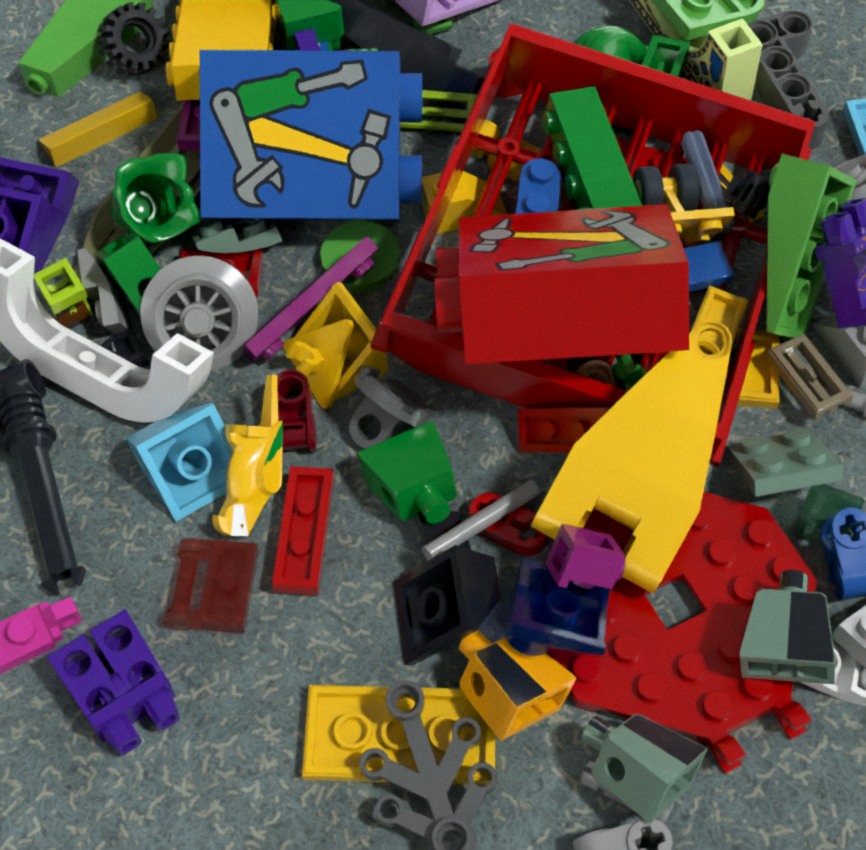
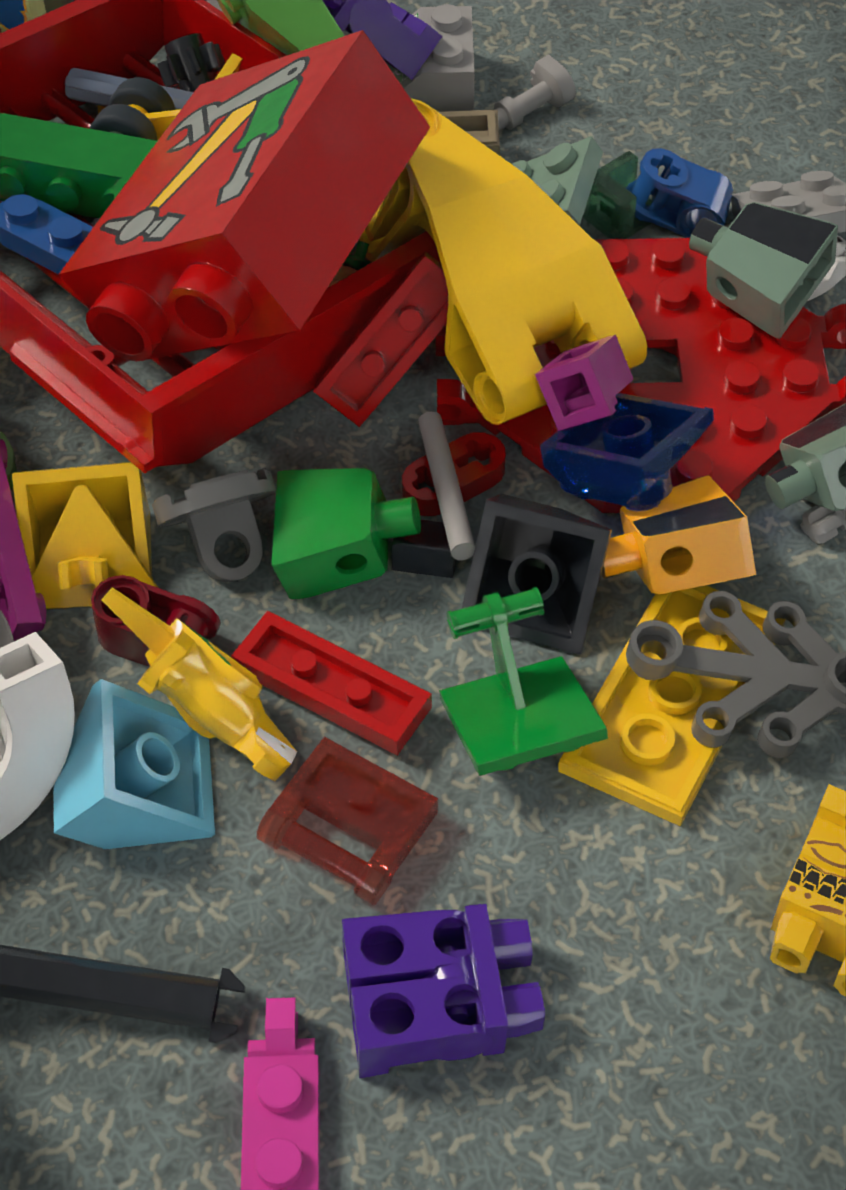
camera: 65 degrees left, 5 degrees down
(329, 642) = (518, 710): none -> green plate

